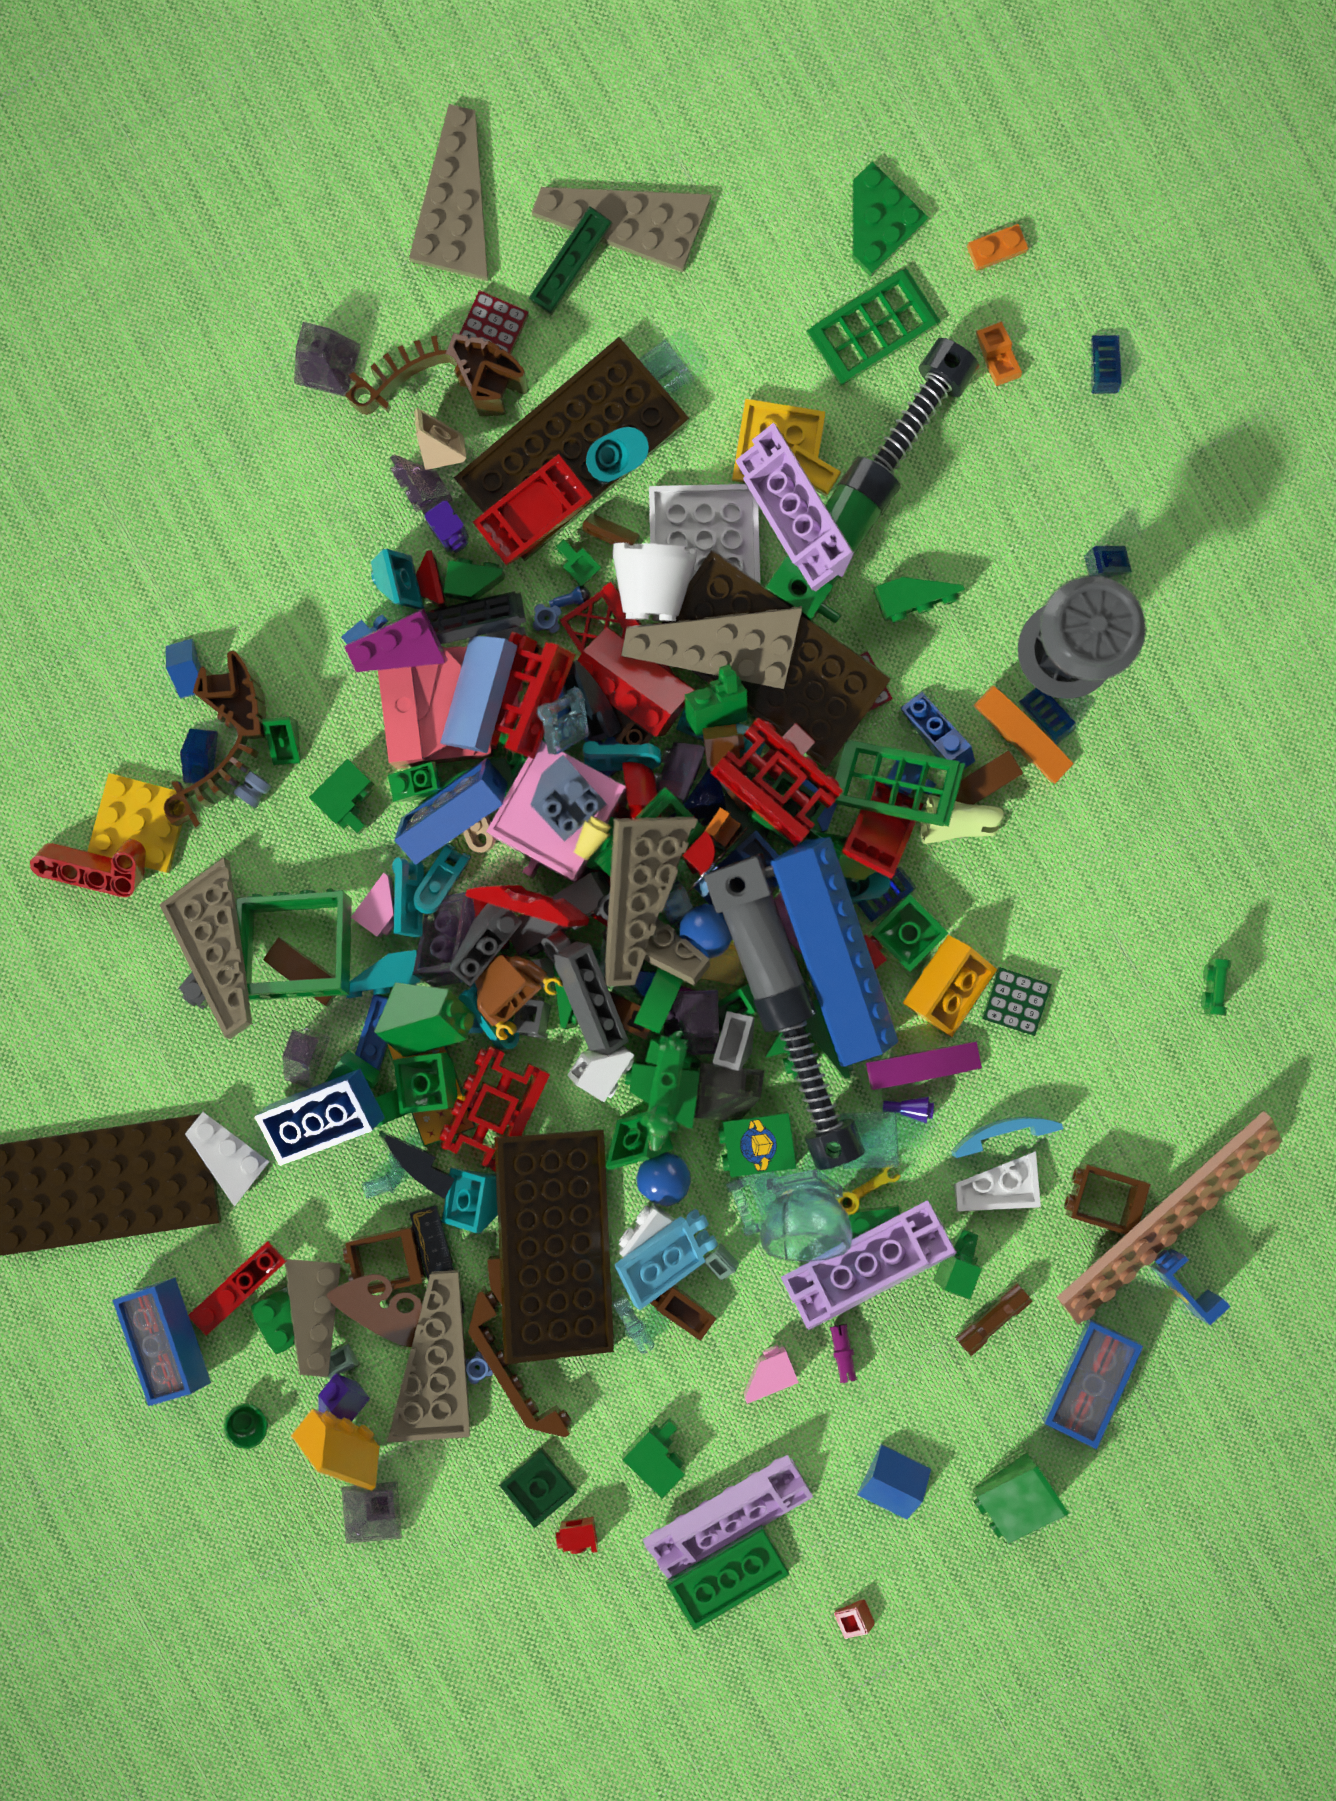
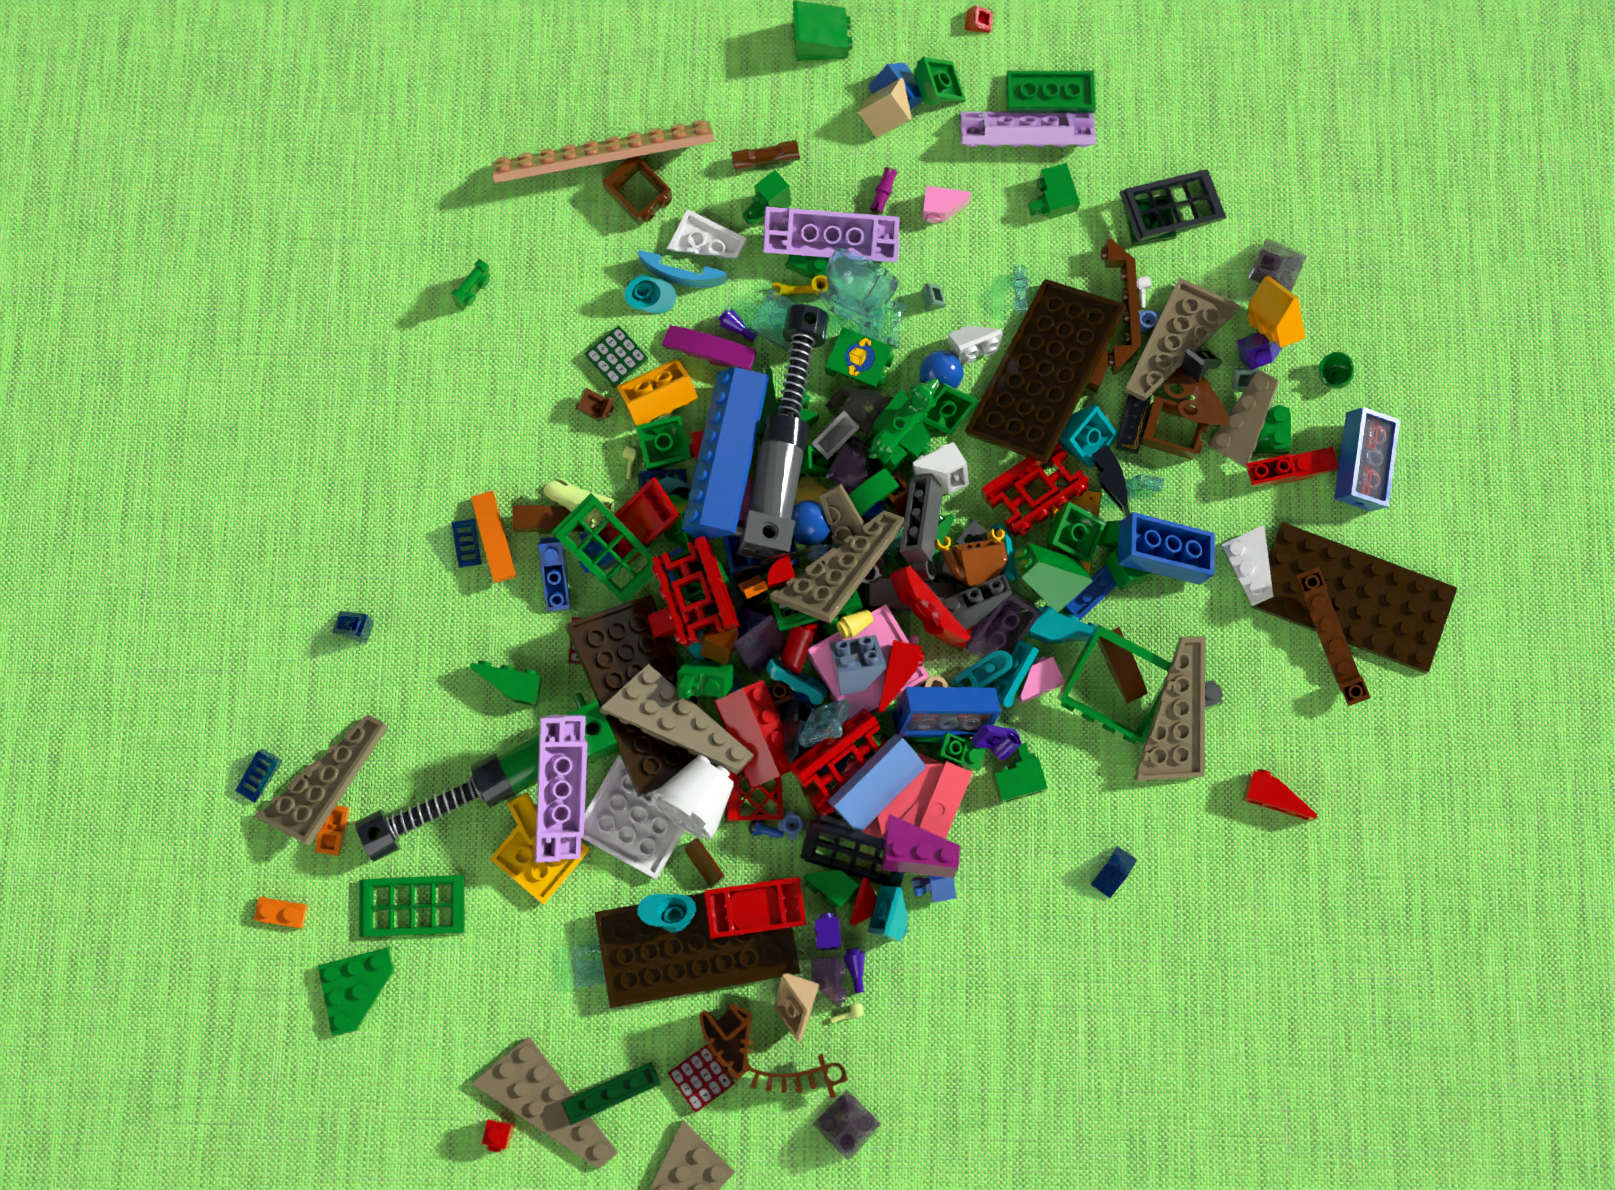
camera: 145 degrees left, 10 degrees down
(84, 924) = (1273, 794): none -> red slope
(93, 871) = (1242, 829): red beam -> none
(98, 1121) = (1331, 636): none -> reddish brown slope
(136, 812) = (1188, 848): yellow plate -> none
(183, 666) = (1089, 946): blue slope -> none
(239, 705) = (1064, 894): reddish brown piece -> none
(252, 789) = (1087, 821): sand blue wheel -> none
(282, 740) = (1043, 846): green slope -> none
(303, 1056) = (1152, 602): slope -> none
(378, 472) = (856, 1011): none -> yellowish green hand
(382, 818) = (999, 739): none -> dark purple plate
(395, 1350) = (1198, 361): none -> black slope
(407, 521) = (855, 963): none -> dark purple cone
(506, 1408) = (1142, 284): none -> white hand
(517, 816) = (901, 665): none -> red slope
(557, 1482) = (1210, 195): none -> black piece
(577, 1536) = (1139, 172): red brick -> none
(579, 565) = (743, 850): green plate -> none
(655, 161) = (497, 1135): none -> red brick
(665, 1258) = (971, 316): medium azure tile -> none
(684, 1312) = (983, 288): reddish brown slope -> none
(855, 1515) = (938, 81): none -> green slope
(894, 1449) = (886, 108): none -> tan slope
(936, 905) = (630, 454): none -> yellowish green hand
(1005, 934) = (595, 405): none -> reddish brown bracket
(1023, 1087) = (650, 294): none -> teal piece
(1037, 379) = (320, 787): none -> dark tan wing
(1081, 637) = (414, 564): dark grey brick -> none
(1092, 1383) = (724, 77): clear brick -> none
(1207, 1306) = (615, 84): blue panel -> none

